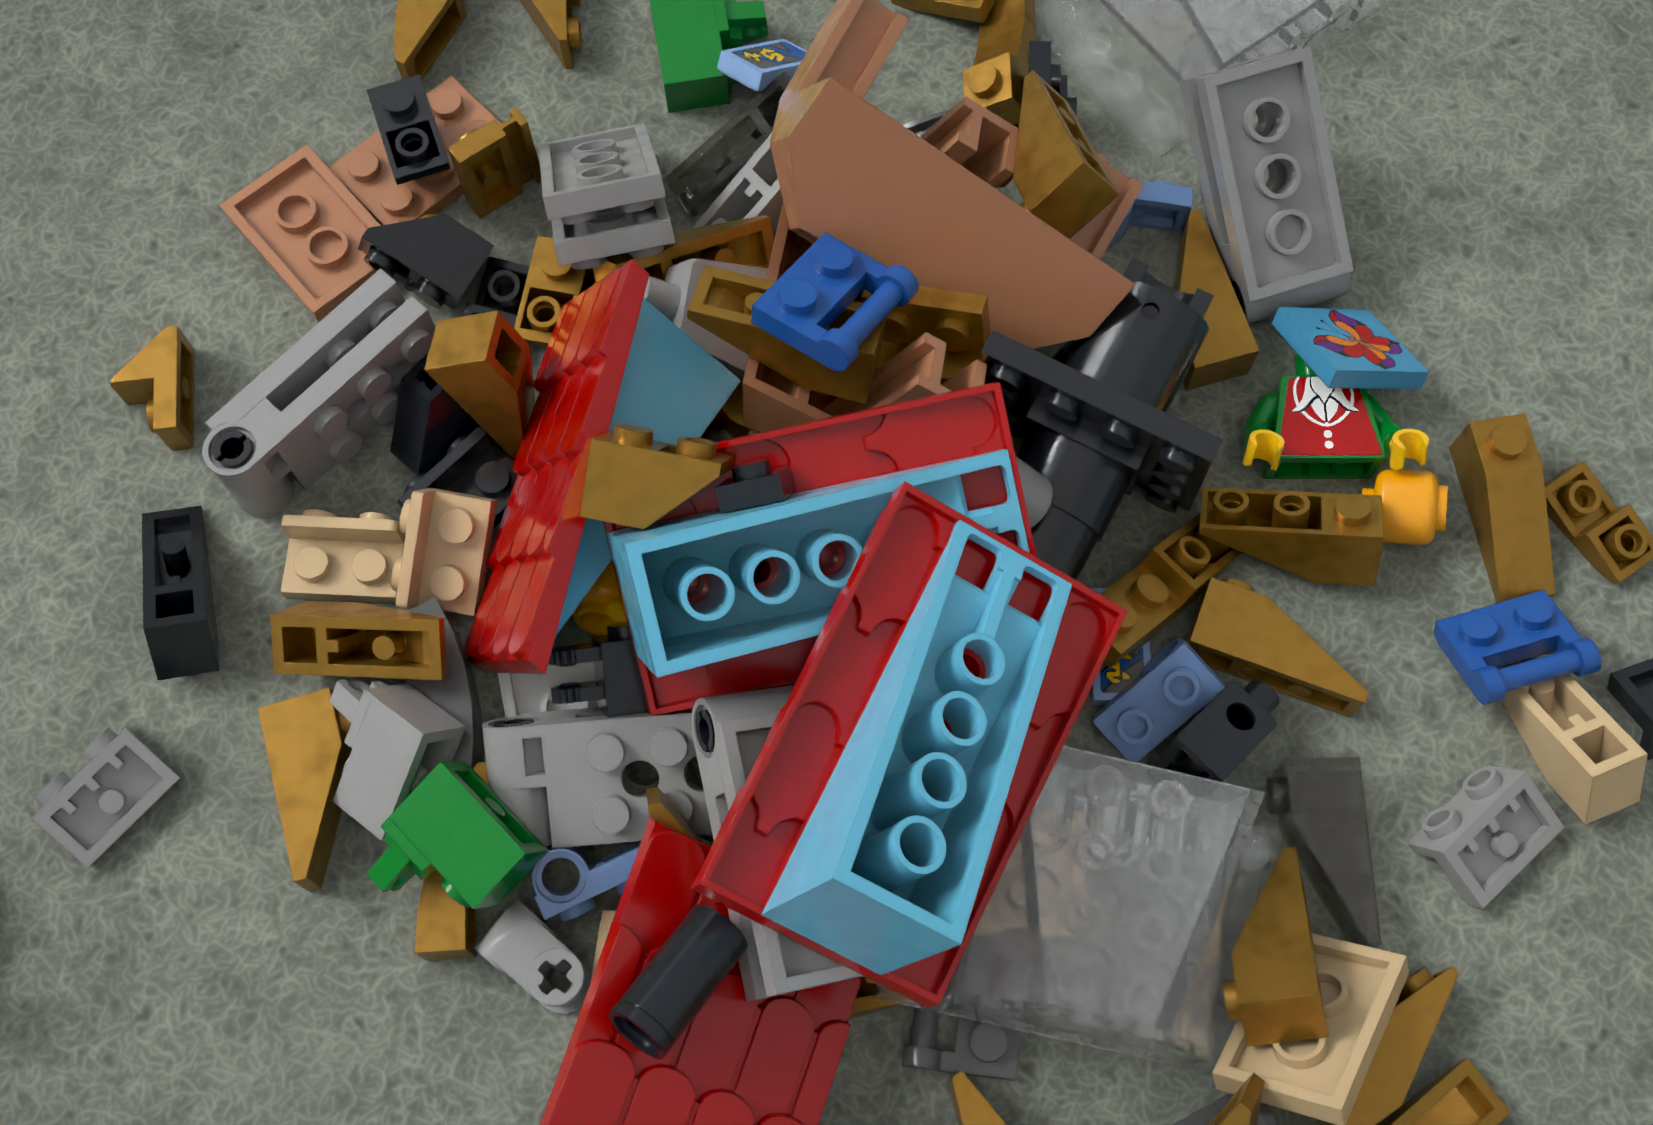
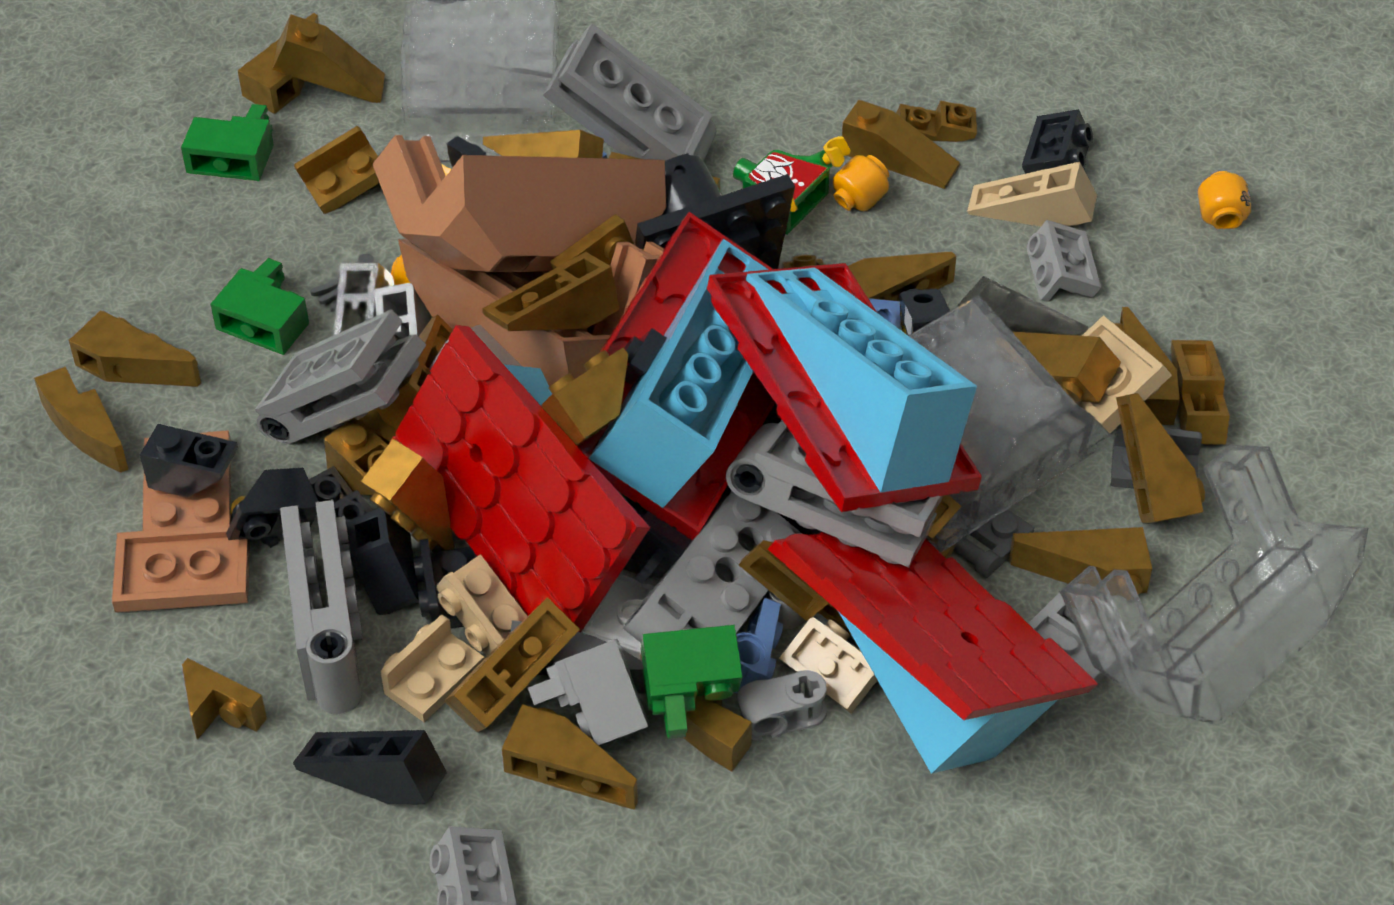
camera: 55 degrees left, 20 degrees down
(495, 163) = (247, 431): pearl gold plate -> none
(678, 981) = (879, 567): black pin -> none
(761, 62) = (316, 278): light blue tile -> none
(820, 289) = (552, 270): blue plate -> none
(1305, 533) = (841, 224): pearl gold slope -> none
(1349, 348) = (753, 145): dark azure tile -> none
(1510, 633) = (965, 189): blue plate -> none

